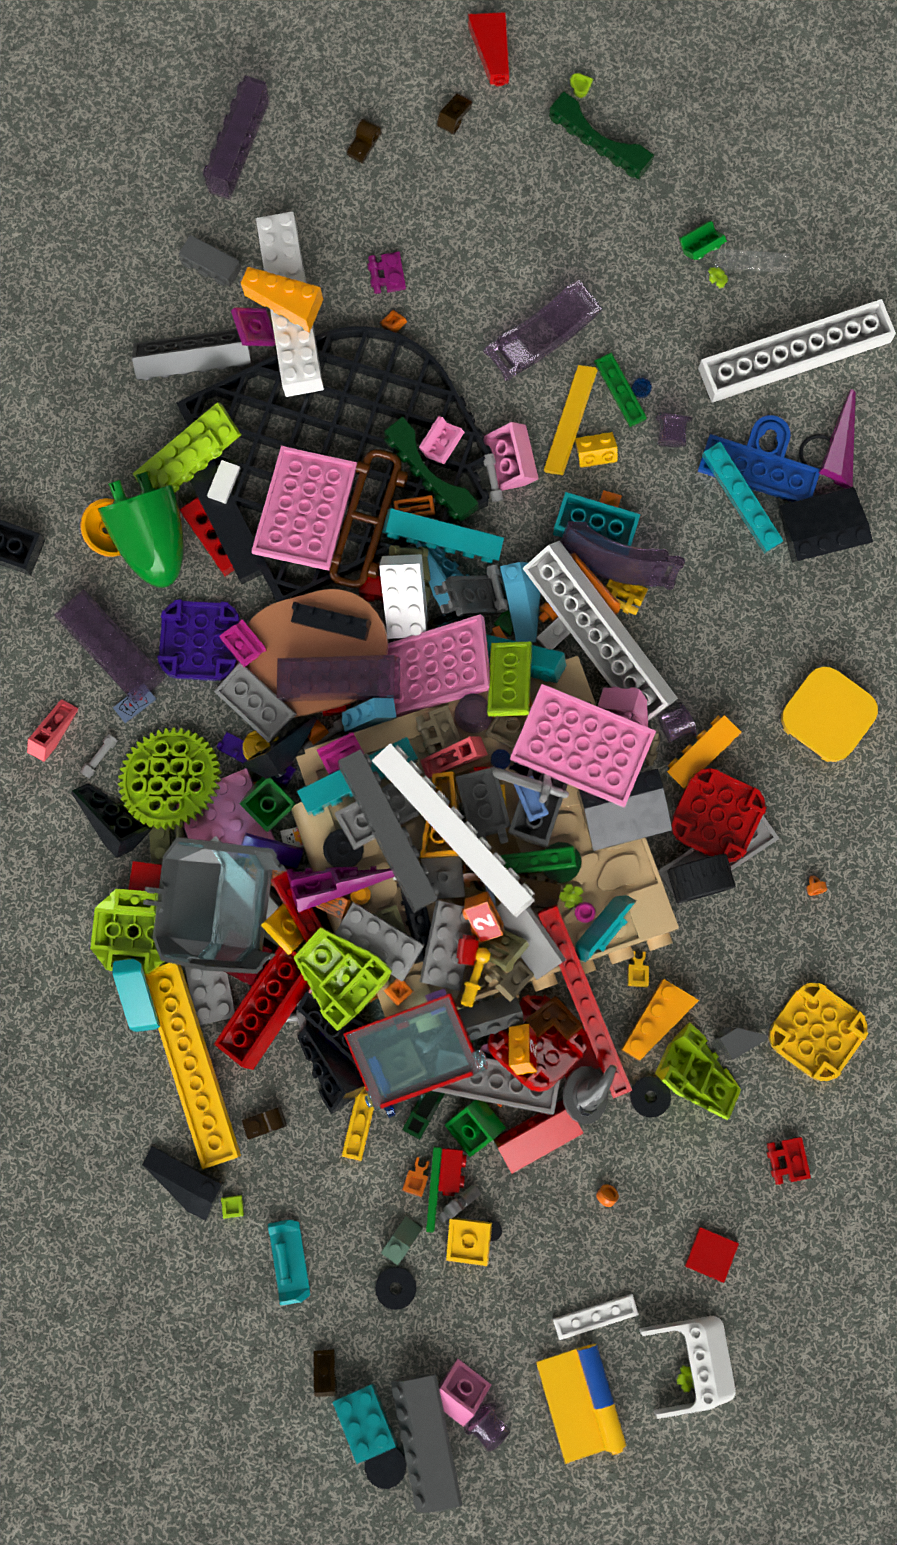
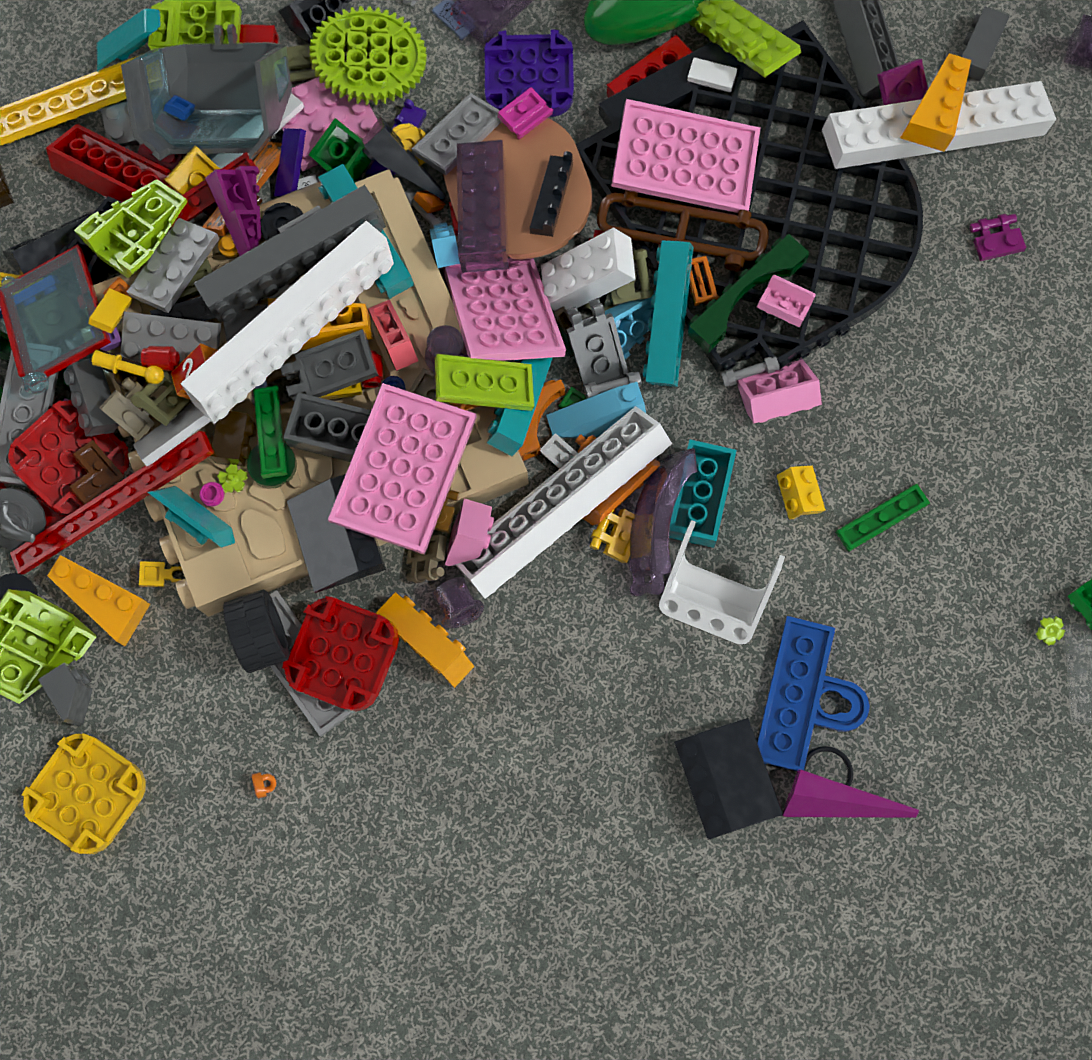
camera: 90 degrees right, 5 degrees down
(214, 944) = (179, 107): none -> blue tile
(337, 750) = (395, 212): dark pink plate -> none
(393, 321) = (935, 248): orange tile -> none
(420, 994) = (110, 311): none -> yellow tile
(444, 727) = (422, 323): dark tan plate -> none
(522, 1049) = (51, 432): light orange brick -> none
(530, 801) = (337, 413): medium blue tile -> none
(544, 330) = (946, 419): clear purple windscreen -> none
(544, 787) = (349, 425): light grey sword -> none
(570, 420) = (836, 459): yellow tile -> none
(610, 498) = (734, 512): orange tile -> none
(641, 387) = (888, 543): clear blue tile -> none
(672, 430) = (833, 579): clear purple piece -> none
(685, 518) = (712, 600): none -> white windscreen
(742, 497) = (752, 668): teal brick -> none
(796, 350) = (962, 736): white brick -> none
(829, 714) = (480, 794): yellow tile -> none

